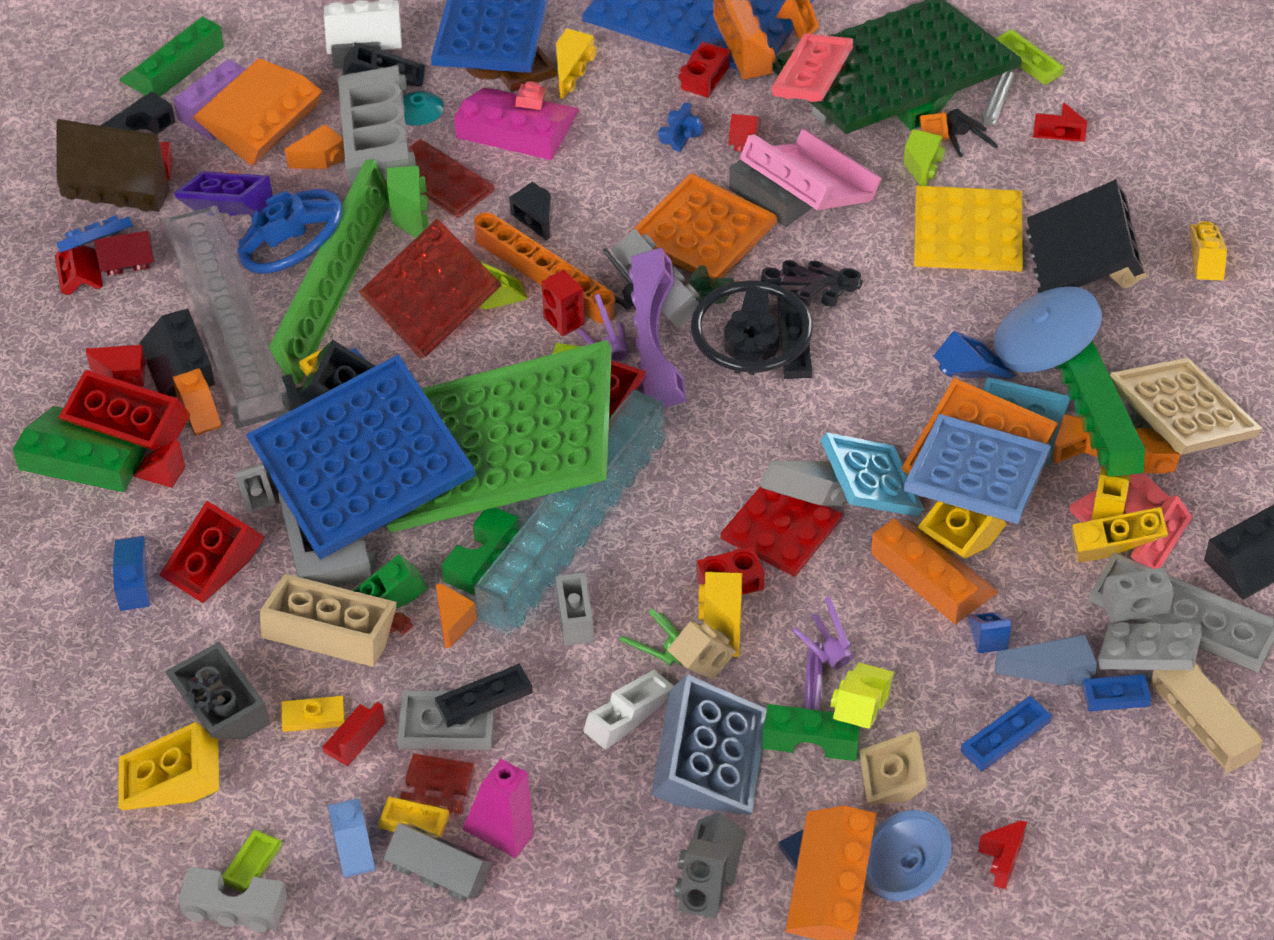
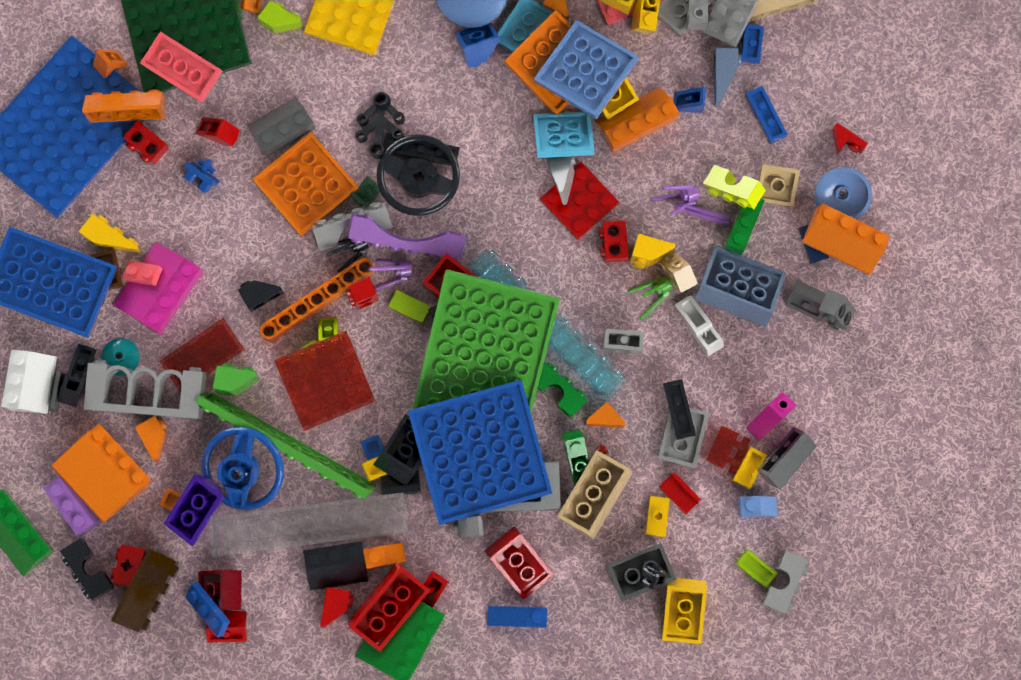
camera: 85 degrees left, 30 degrees up
(812, 171) = (282, 97): bright pink panel -> none

